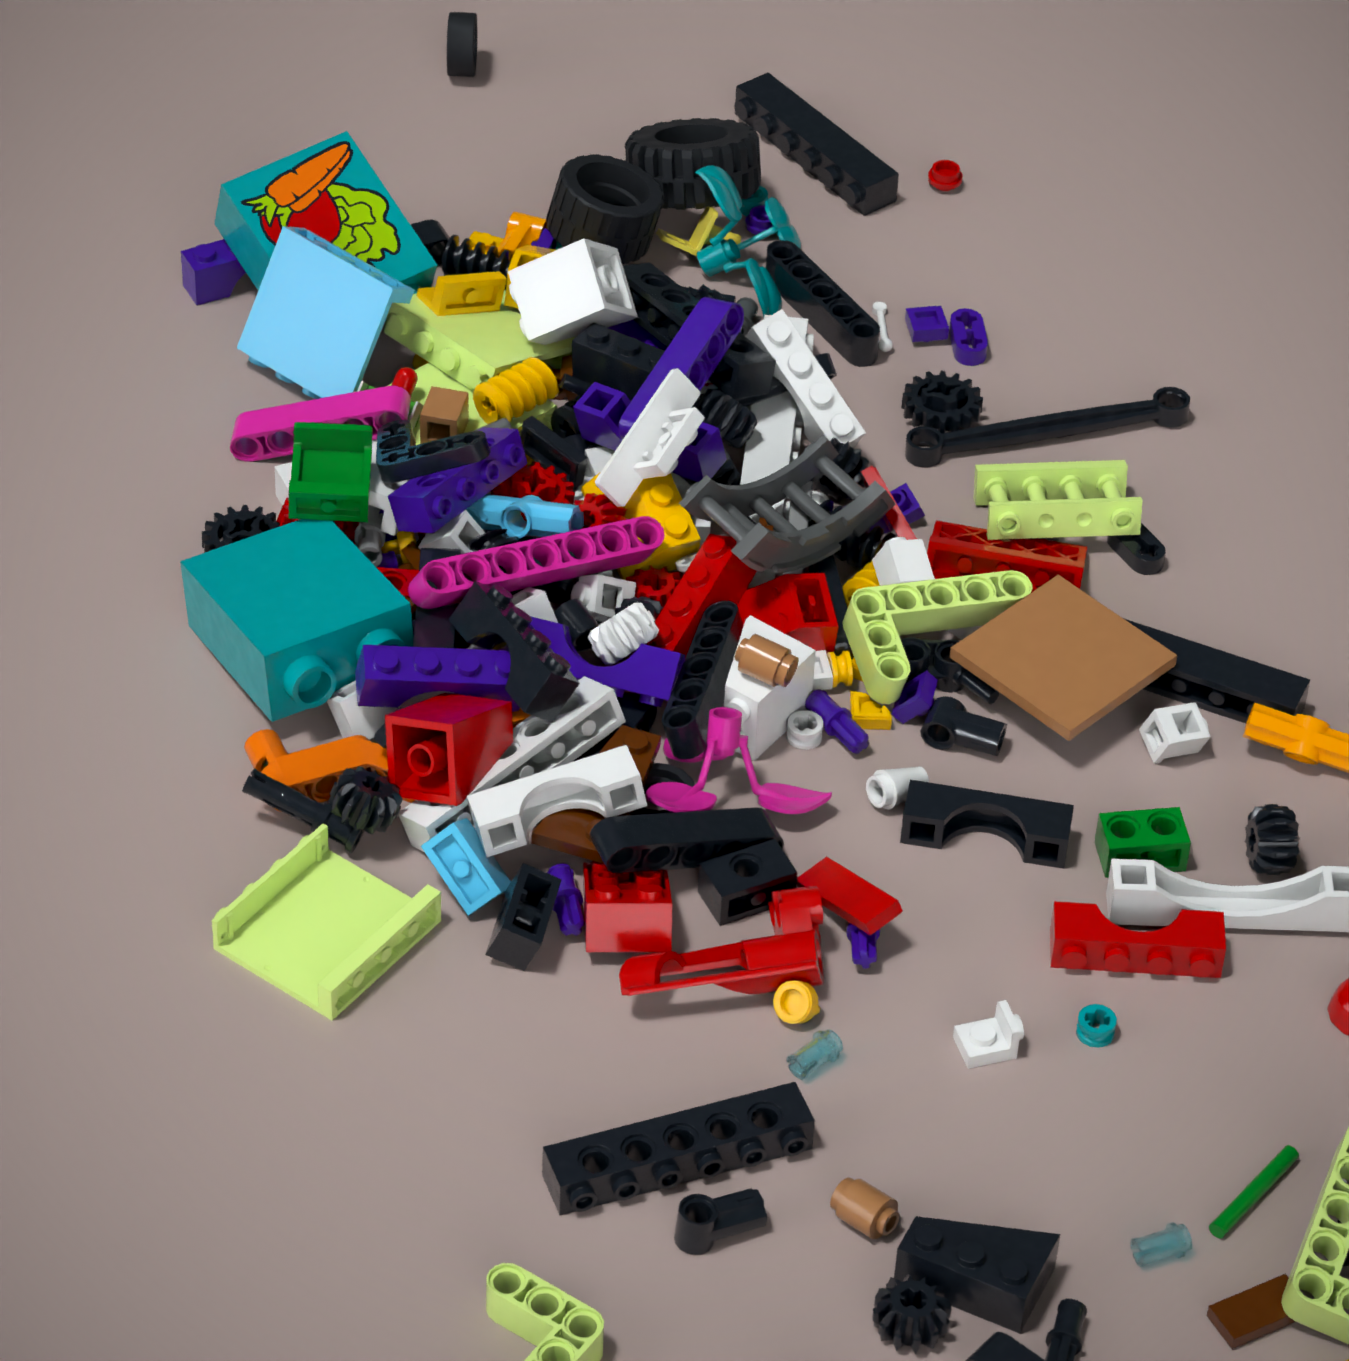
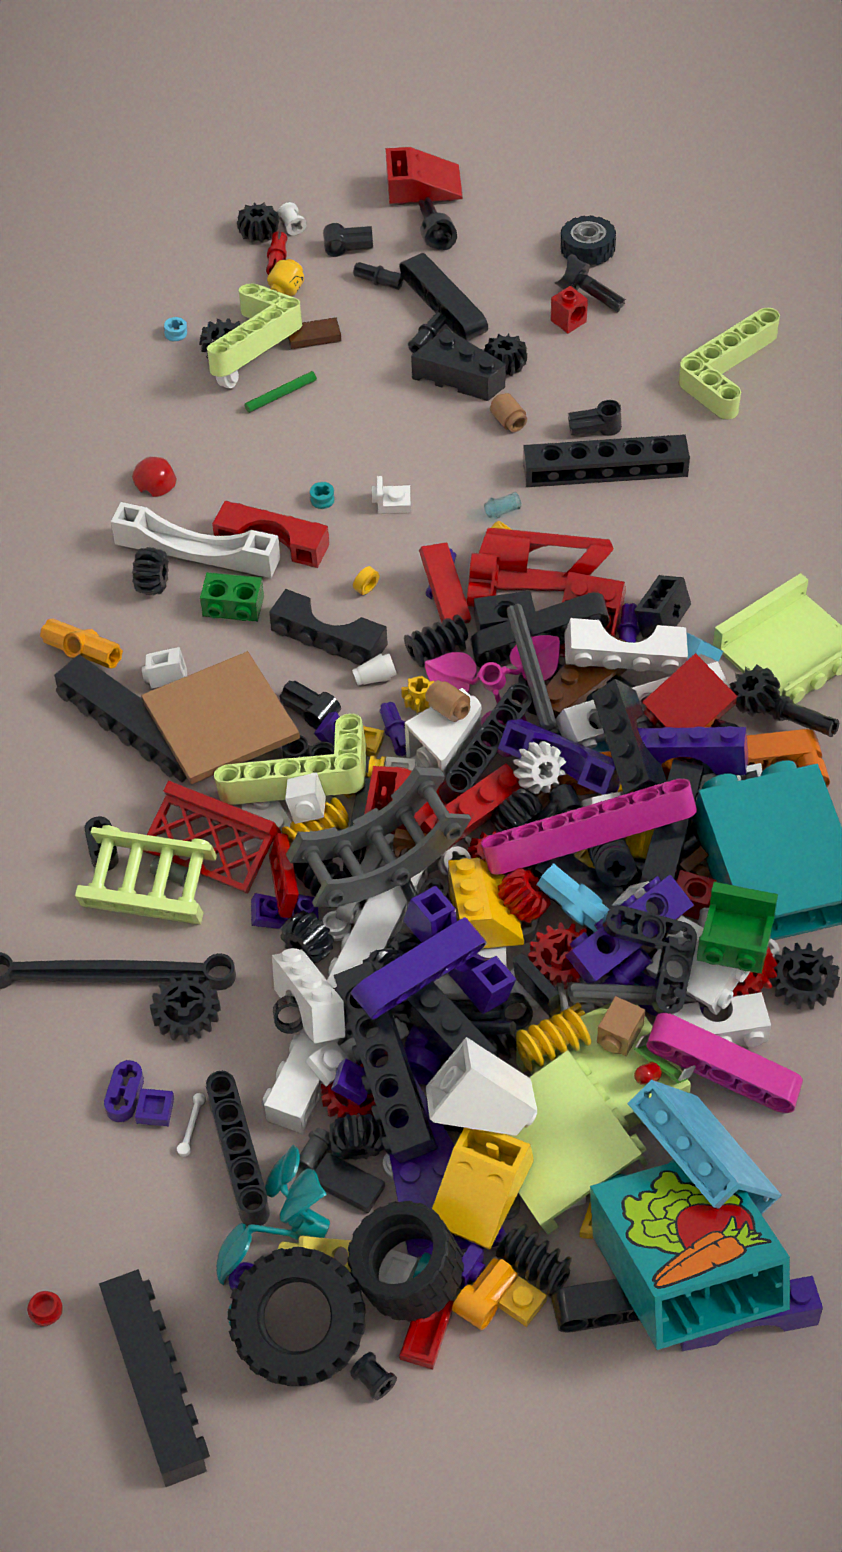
camera: 160 degrees left, 10 degrees up
(464, 293) = (574, 1158): yellow panel -> none
(654, 439) = (461, 890): white bracket -> none
(678, 755) = (531, 667): none -> dark grey axle
(823, 762) = (415, 693): none -> yellow gear
(829, 824) = (437, 639): none -> black piece
(966, 898) = (366, 580): none -> yellow tile
(1162, 1244) = (349, 369): clear light blue pin -> none

